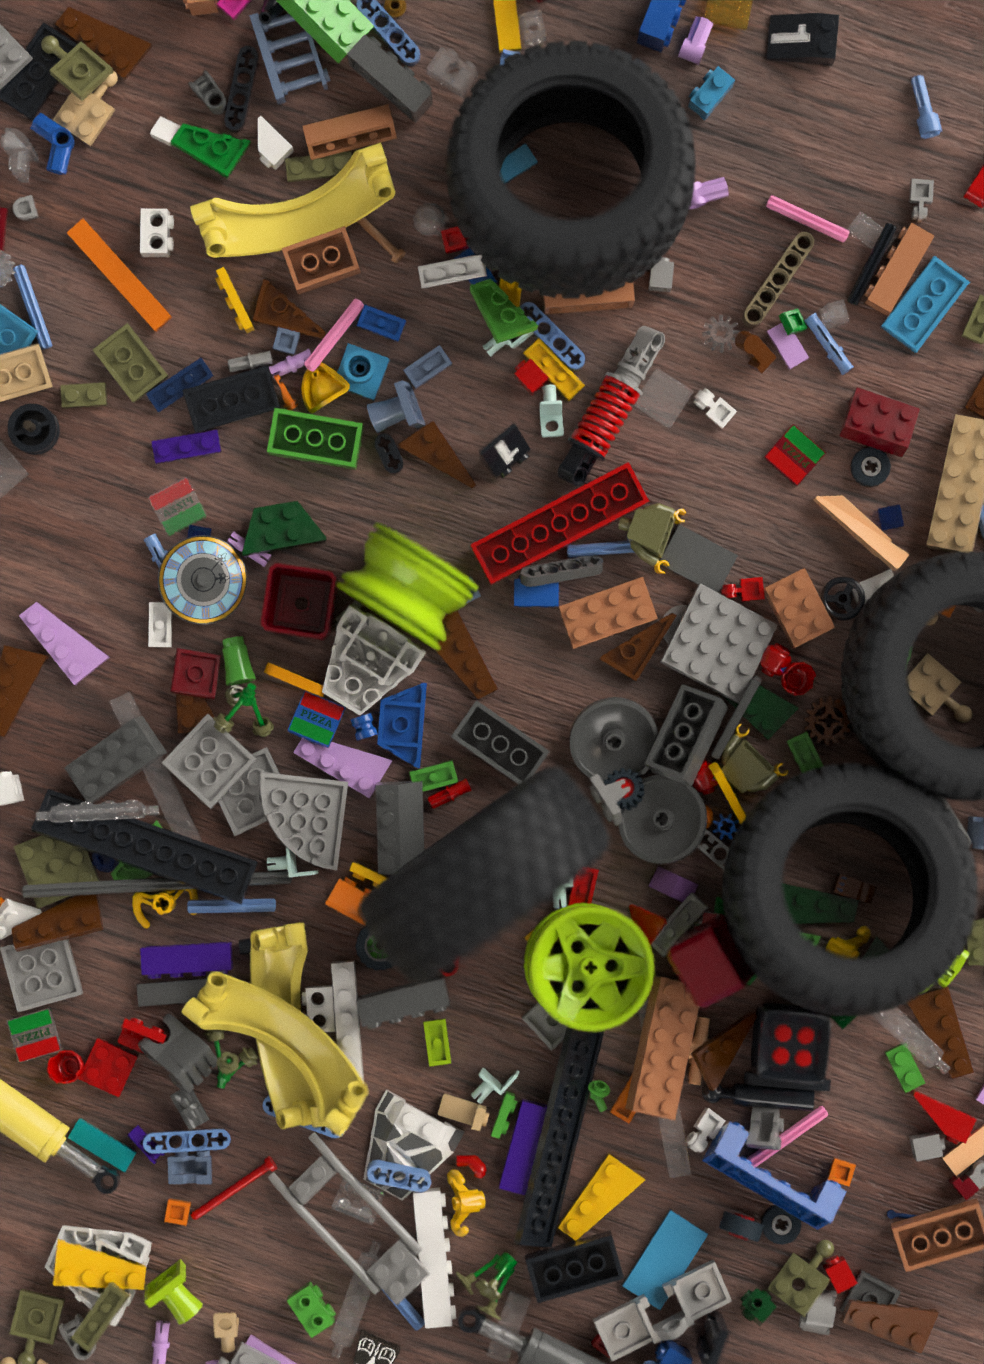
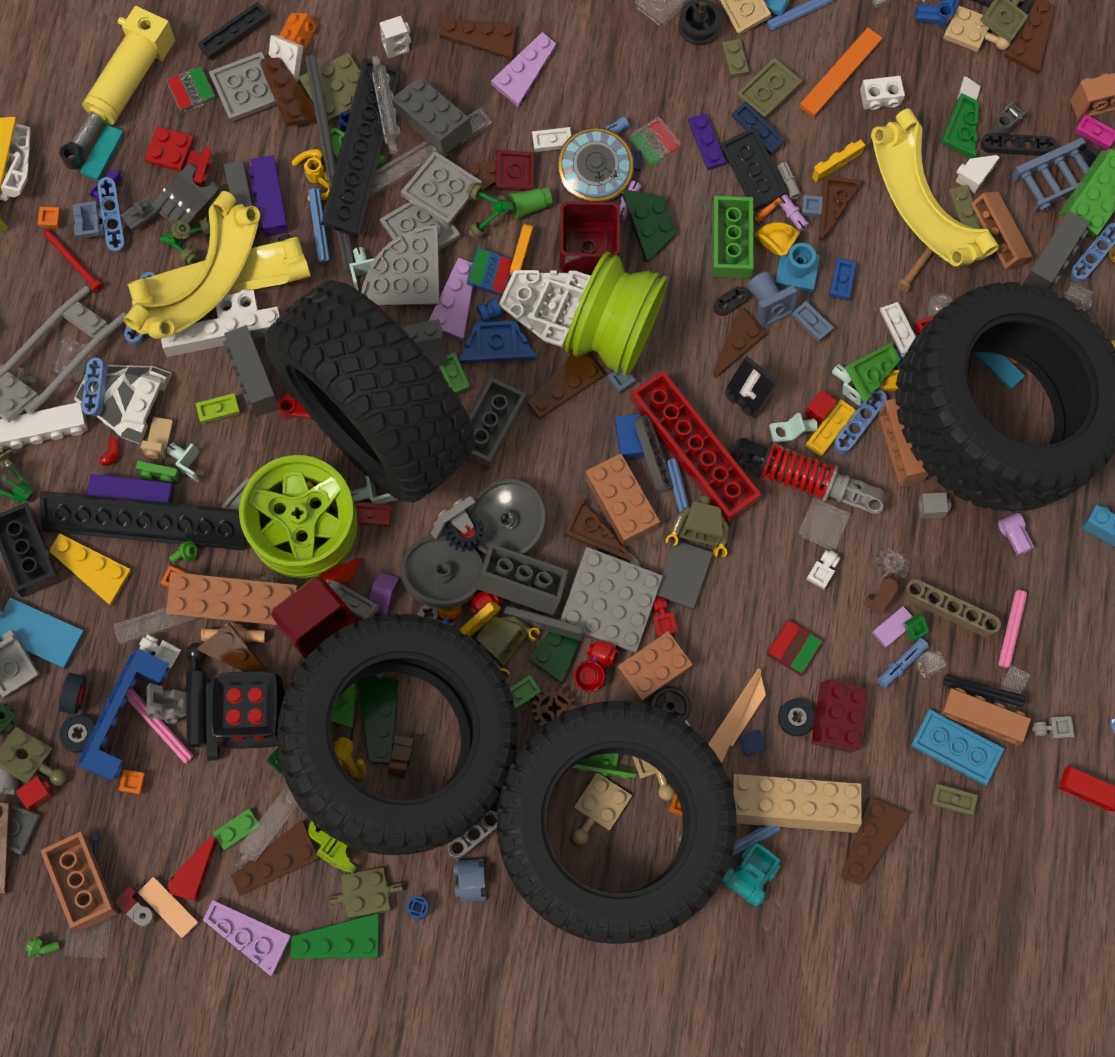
camera: 80 degrees right, 15 degrees down
(65, 1067) = (165, 113): red hair -> none
(321, 260) = (886, 221): nougat brick -> none
(334, 335) = (824, 241): bright pink axle -> none
(464, 1202) = (76, 449): yellow piece -> none
(927, 1146) = (163, 859): light grey brick -> none

